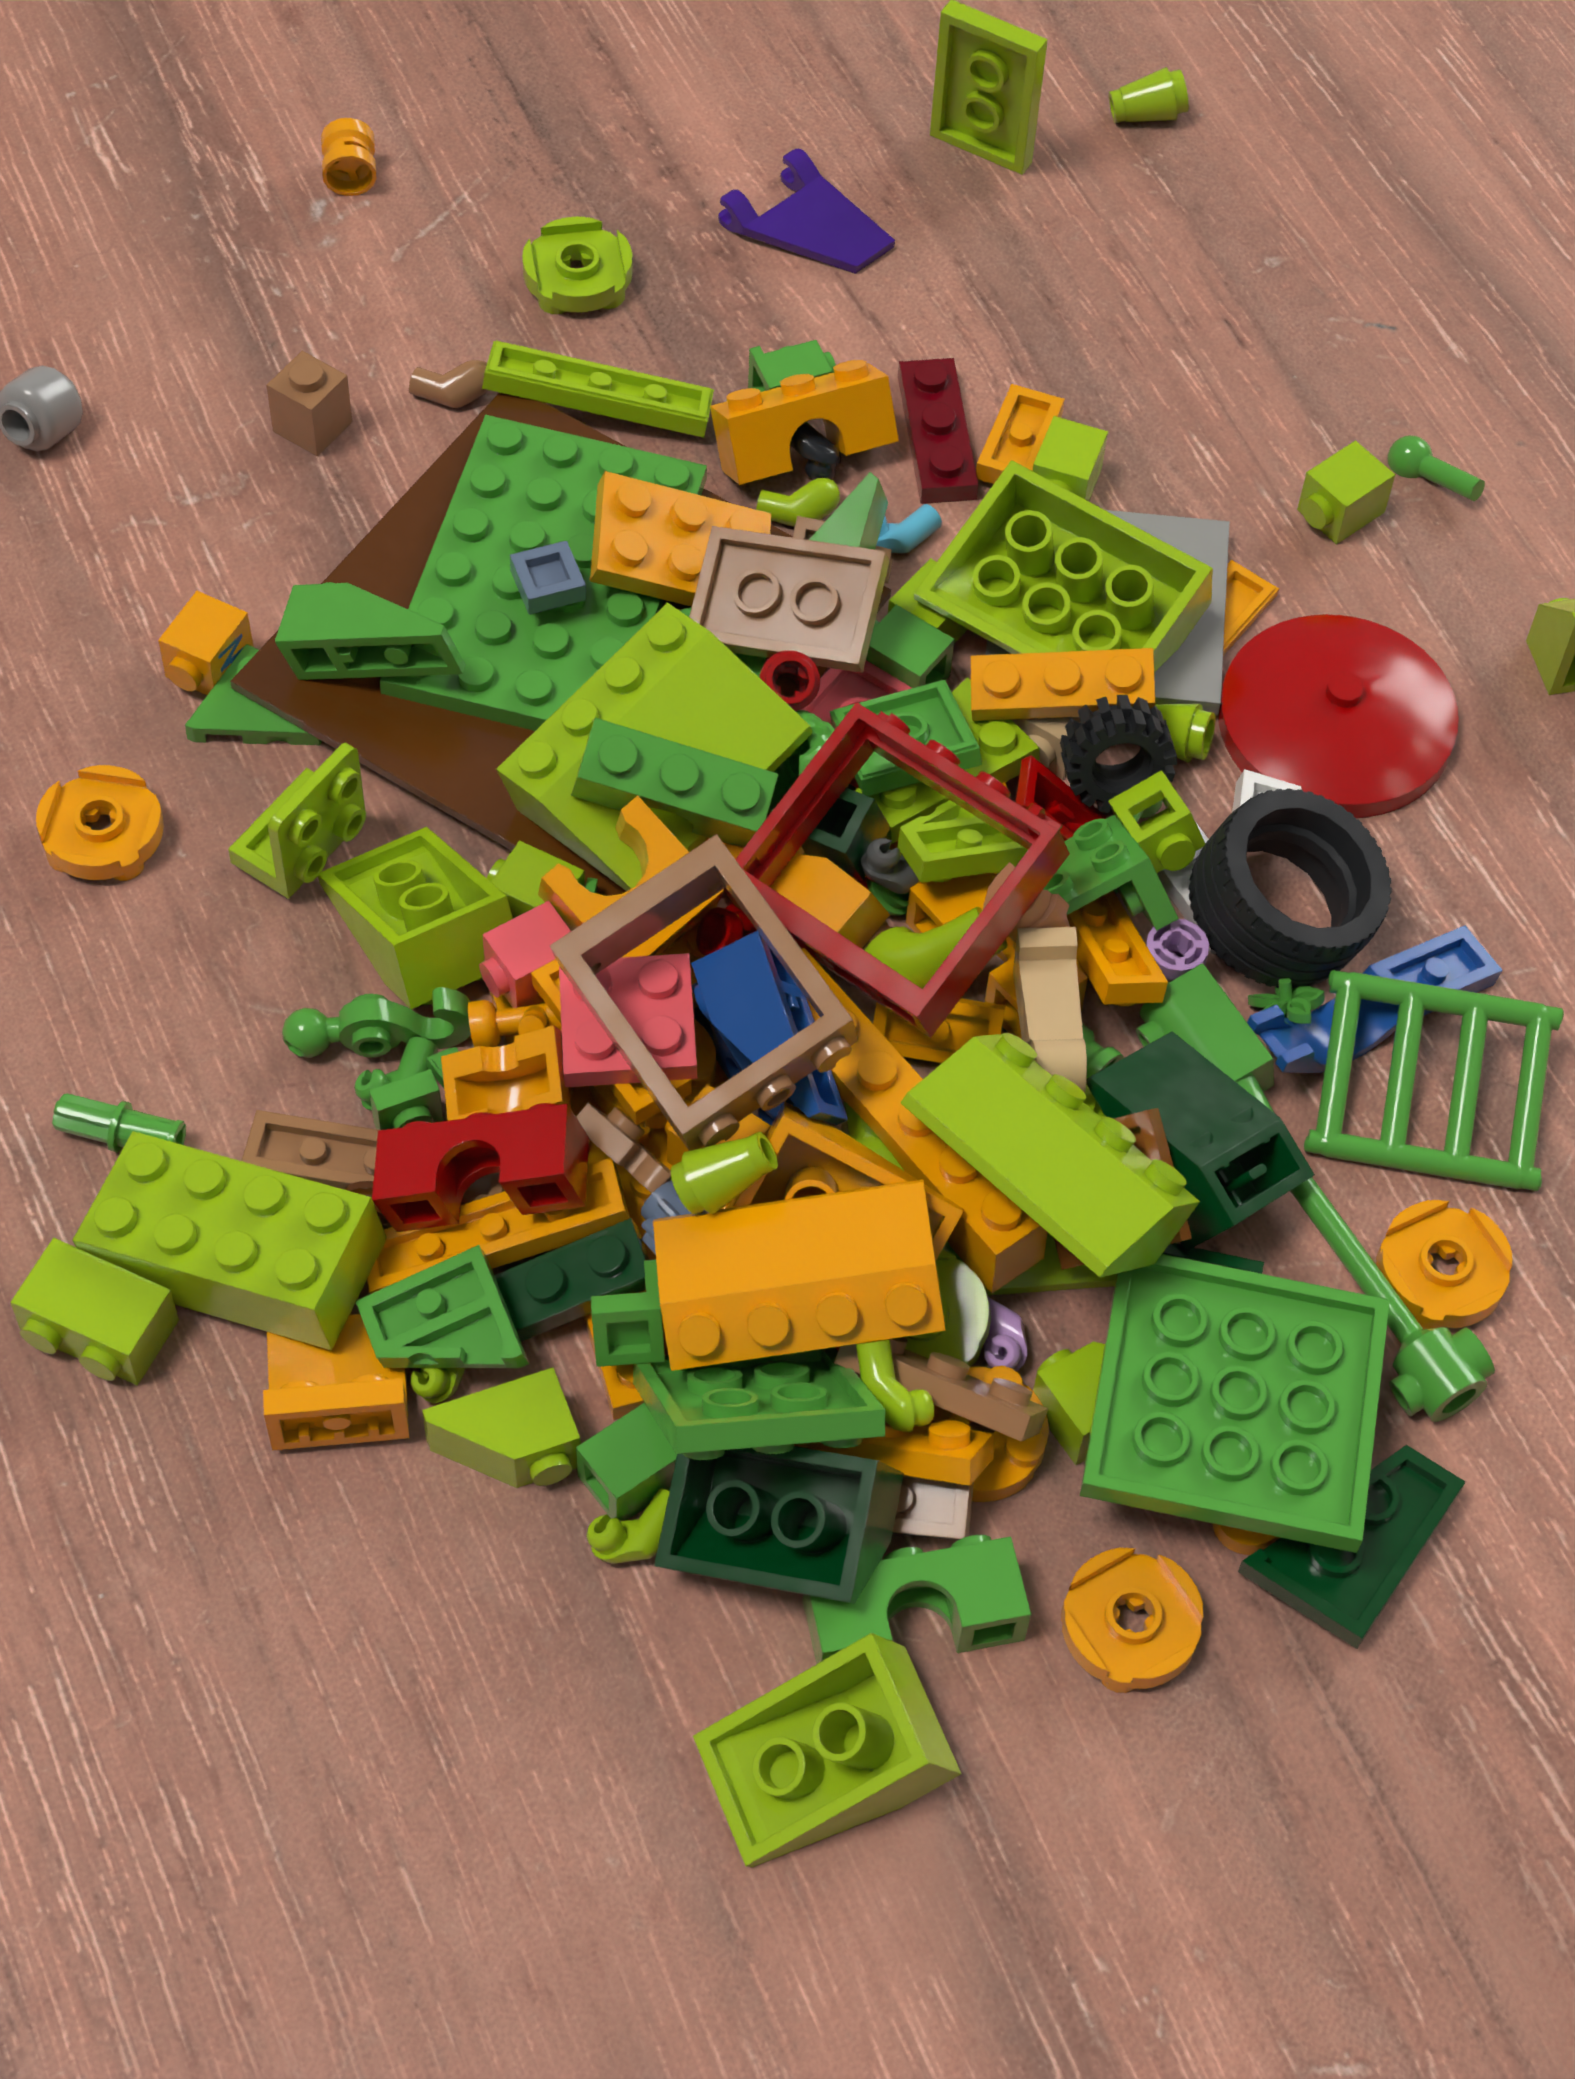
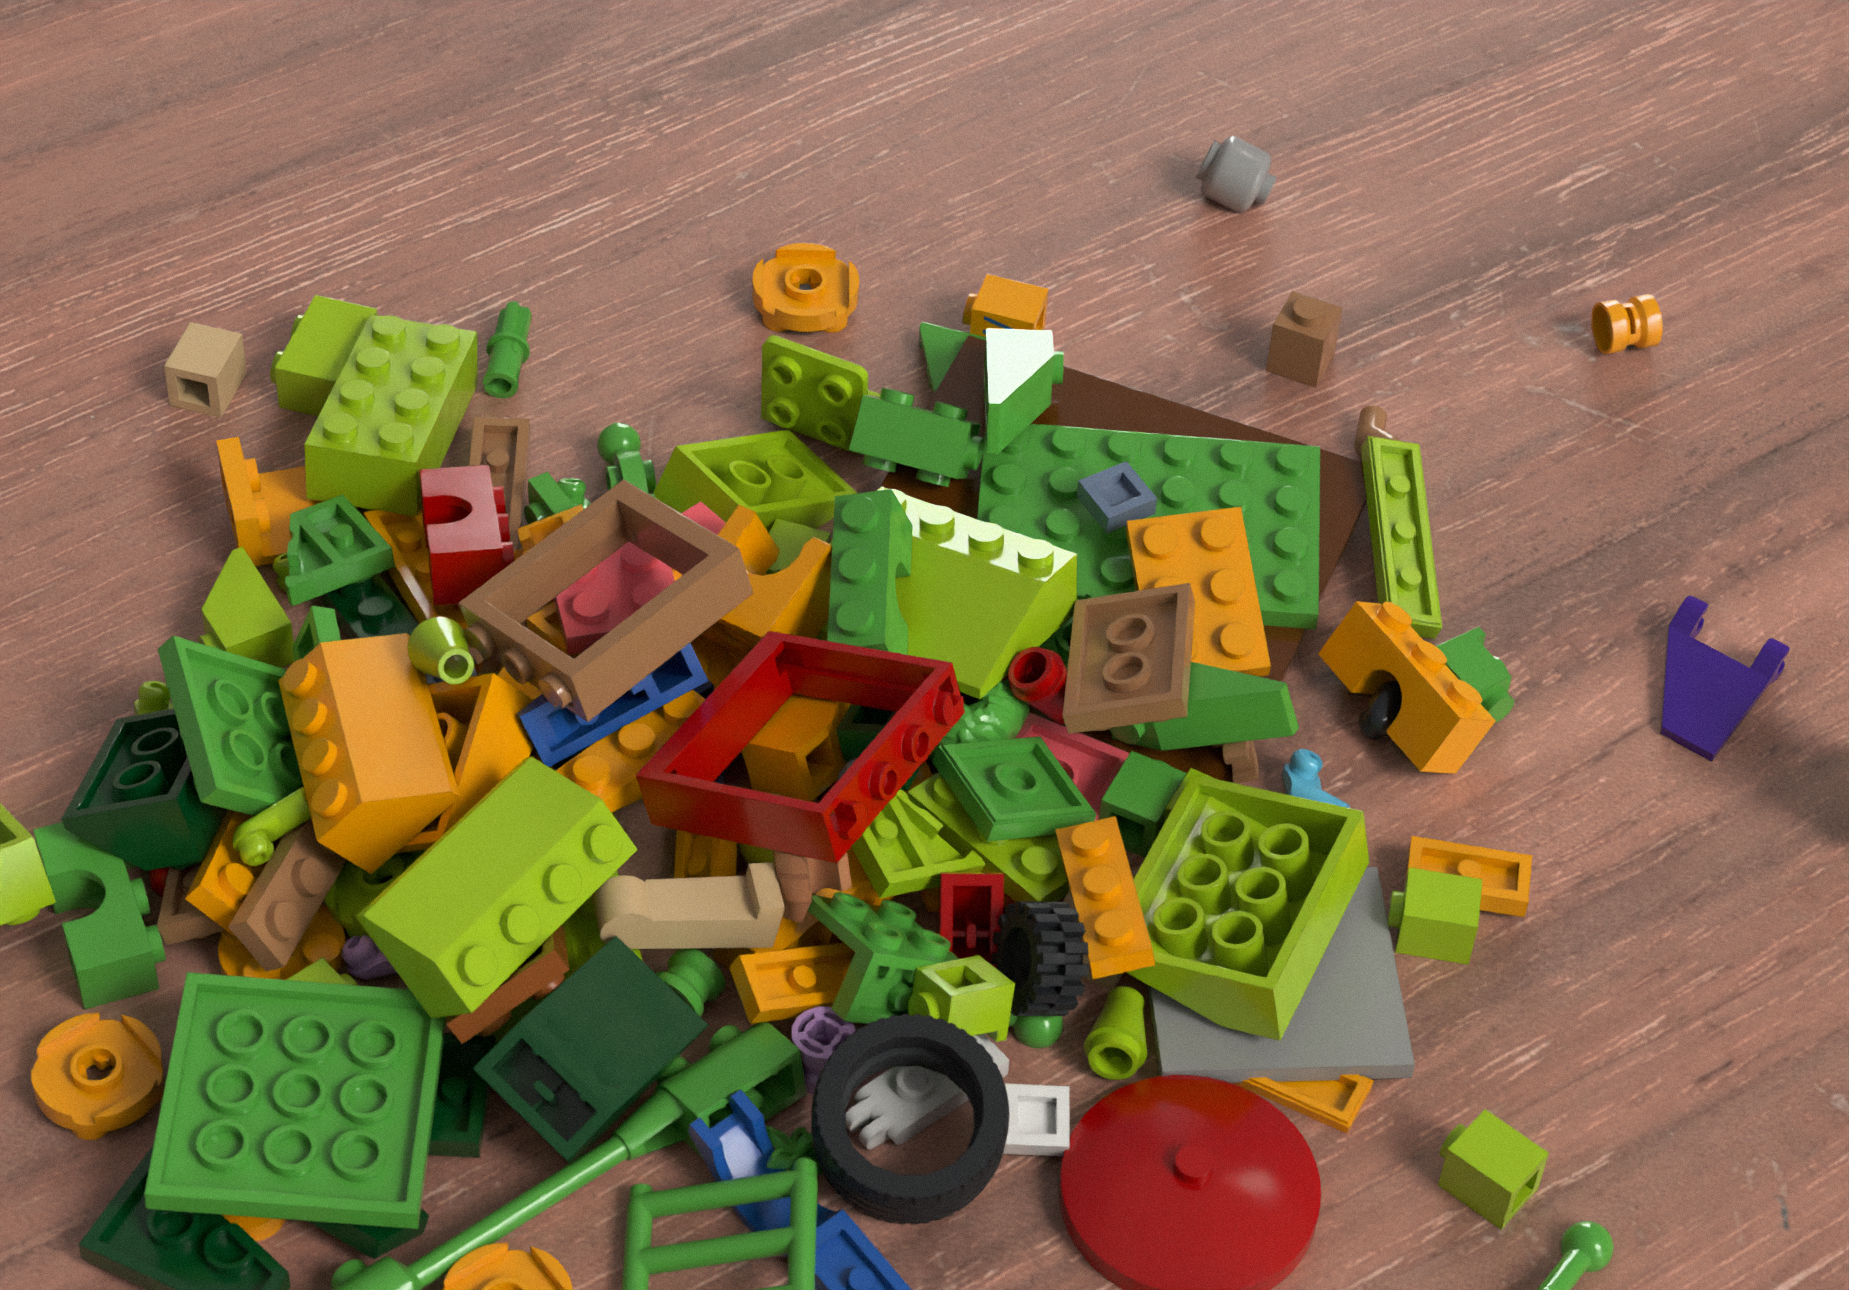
camera: 80 degrees right, 10 degrees down
(79, 1446) = (205, 369): none -> tan brick
(410, 736) = (933, 441): none -> bright green brick
(585, 289) = (1558, 530): lime plate -> none
(811, 501) = (1320, 716): lime arm -> none
(937, 431) = (1464, 812): dark red plate -> none

